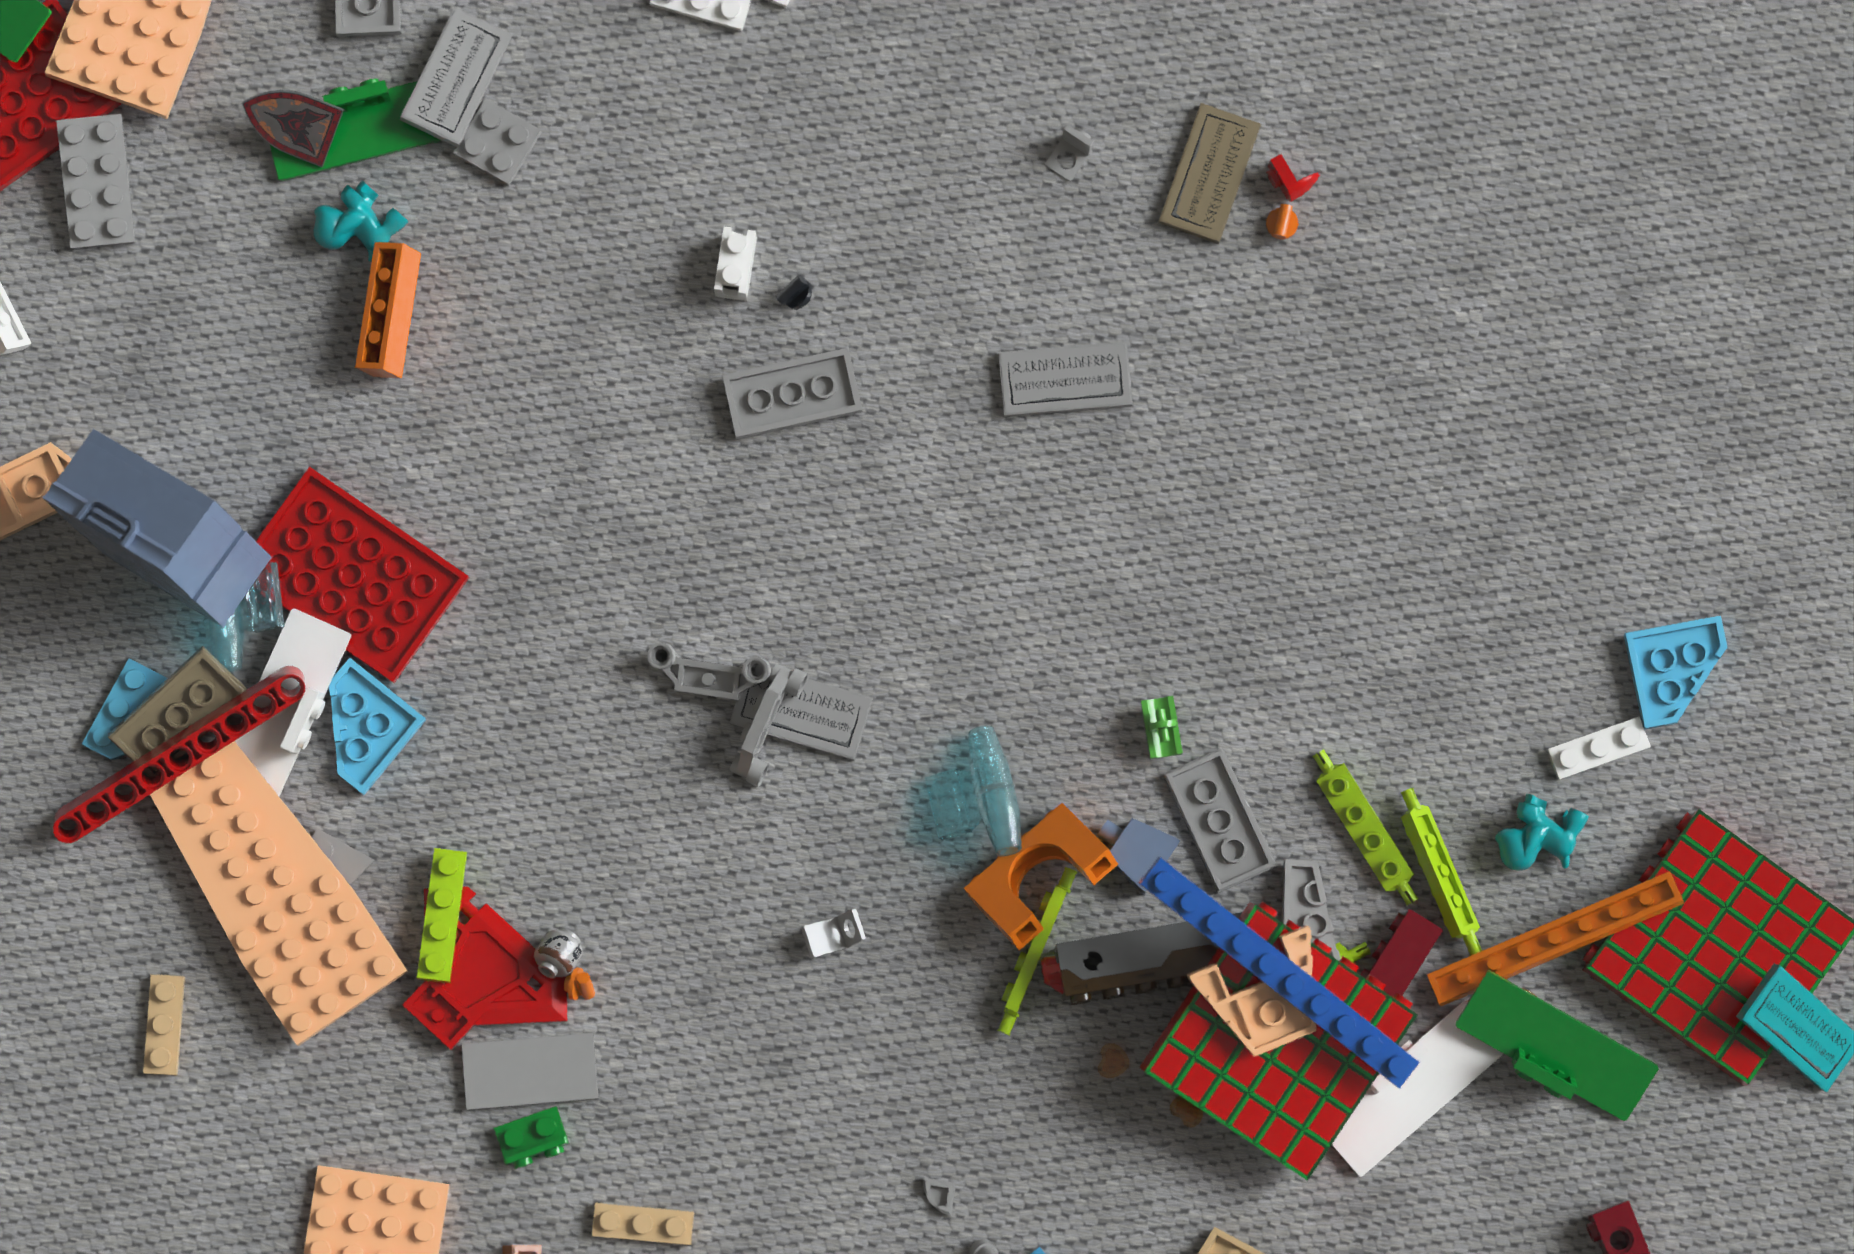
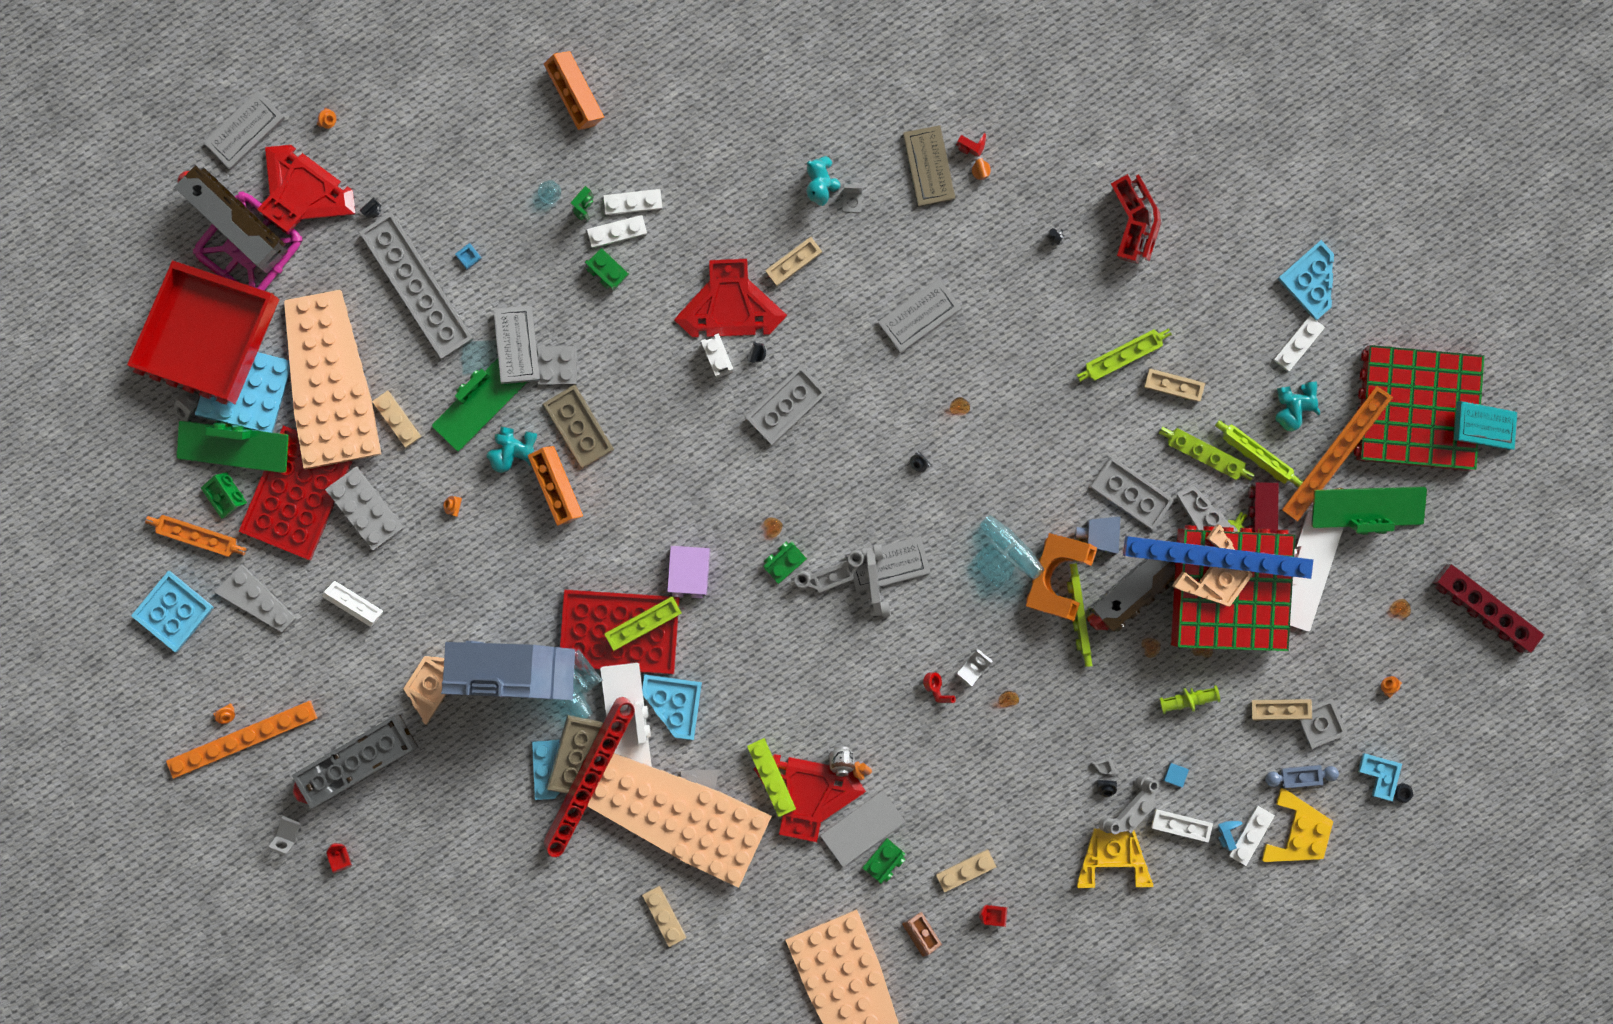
camera: 25 degrees left, 5 degrees up
(220, 83) = (397, 419): none -> tan plate
(223, 252) = (452, 505): none -> orange plate
(294, 123) = (448, 418): shield -> none
(392, 581) = (643, 623): none -> lime plate
(393, 61) = (478, 355): none -> clear light blue piece
(473, 247) = (578, 426): none -> dark tan tile
(504, 547) = (688, 571): none -> lavender brick
(651, 616) = (784, 562): none -> green bracket
(652, 47) = (606, 269): none -> green bracket
(667, 557) = (773, 527): none -> clear orange piece
(761, 921) = (933, 683): none -> red plate
(799, 201) = (730, 304): none -> red plate
(857, 1009) = (1008, 698): none -> clear orange piece
(923, 1227) = (1106, 788): none -> black plate
(929, 194) = (793, 261): none -> tan plate
(936, 590) = (919, 462): none -> black plate
(1024, 109) = (817, 190): none -> teal animal
(1044, 543) = (959, 405): none -> clear orange piece
(1122, 1170) = (1190, 699): none -> lime piece
(1161, 727) = (1075, 464): bright green hips -> none
(1329, 612) = (1124, 355): none -> lime plate
(1334, 384) = (1057, 237): none -> black plate
(1377, 699) = (1174, 385): none -> tan plate
(1466, 437) = (1139, 220): none -> red brick
(1518, 1224) = (1400, 607): none -> clear orange piece

